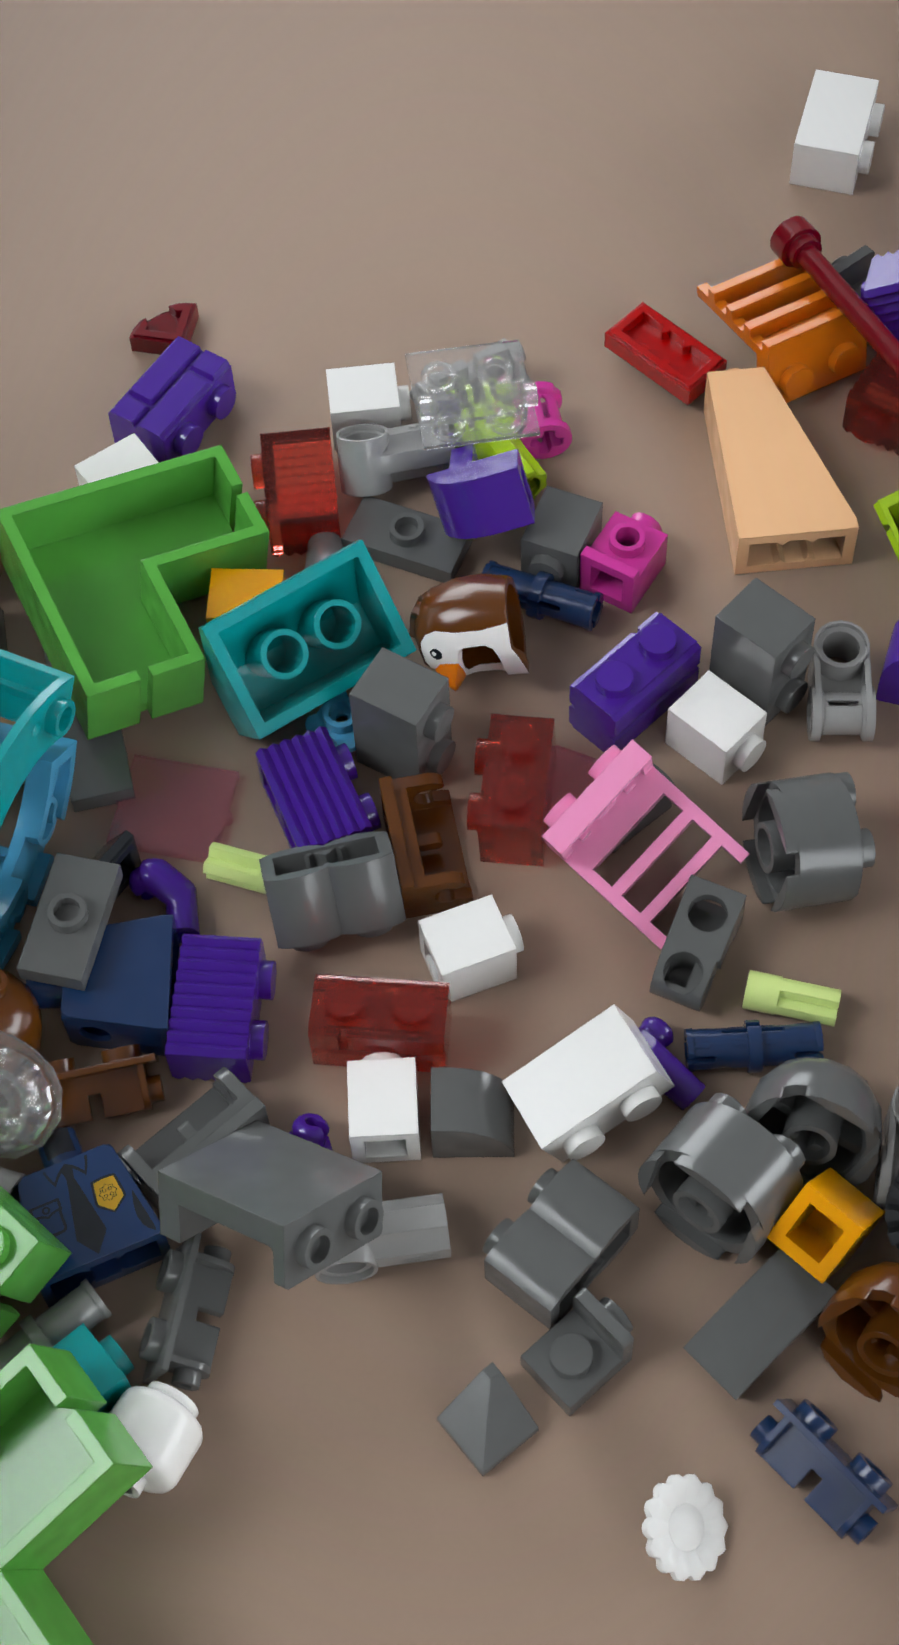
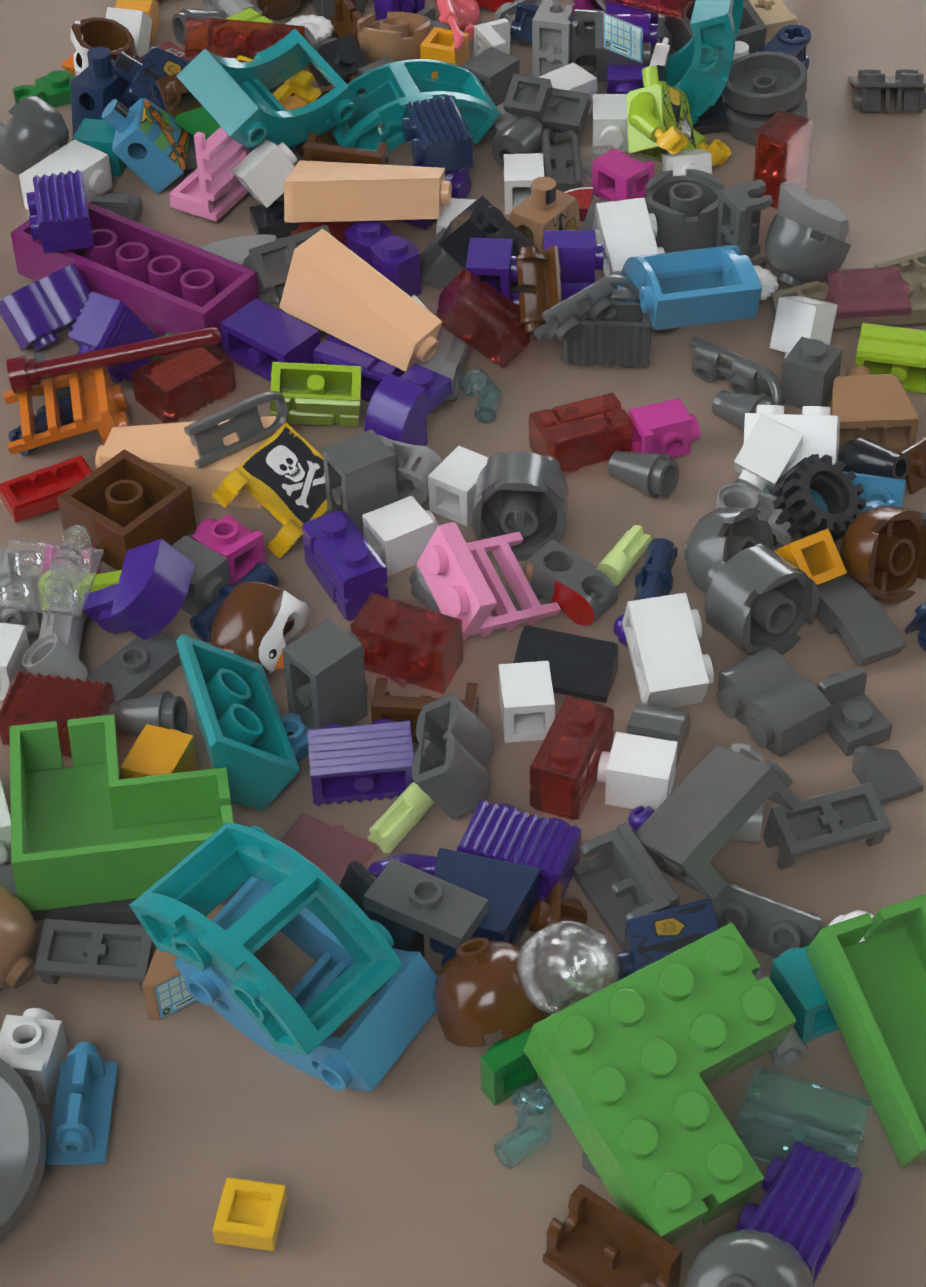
camera: 75 degrees left, 15 degrees down
(343, 1354) = (826, 823): none -> dark grey hinge
(554, 978) = (577, 663): none -> black slope
(629, 436) = (128, 507): none -> reddish brown brick
(747, 547) = (286, 480): none -> flag
(812, 484) = (243, 419): none -> dark grey piece
(851, 751) = (454, 485): none -> white brick

